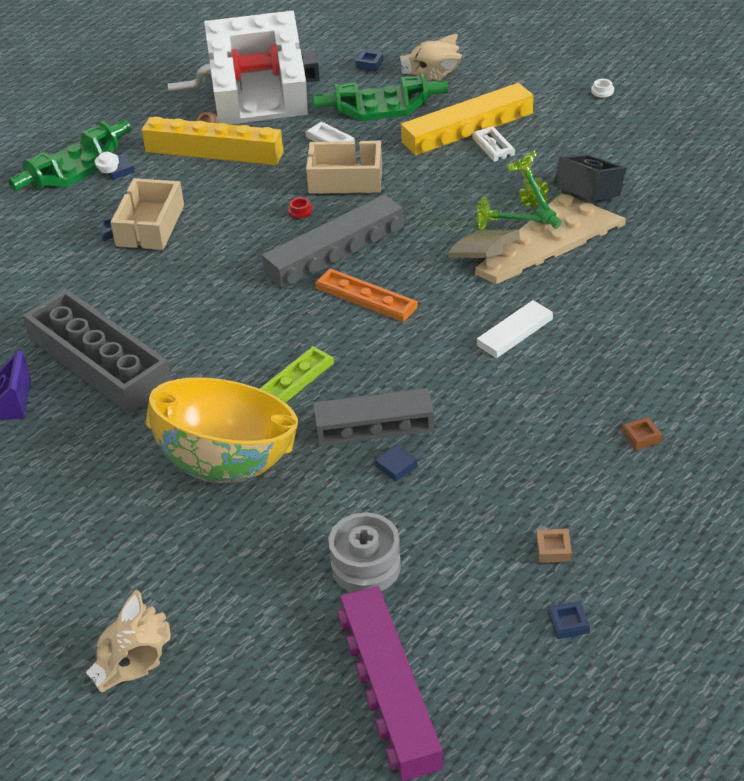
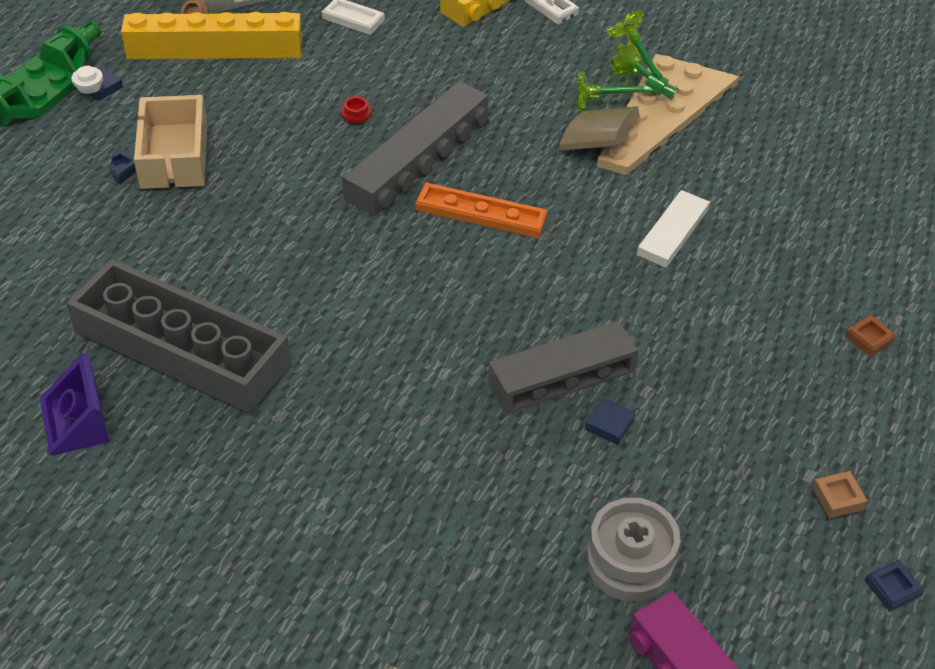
camera: 20 degrees left, 5 degrees up
(220, 428) = (400, 418): yellow piece -> none
(298, 374) = (432, 343): lime tile -> none
(334, 167) = (380, 58): tan piece -> none
(589, 177) = (685, 33): black brick -> none

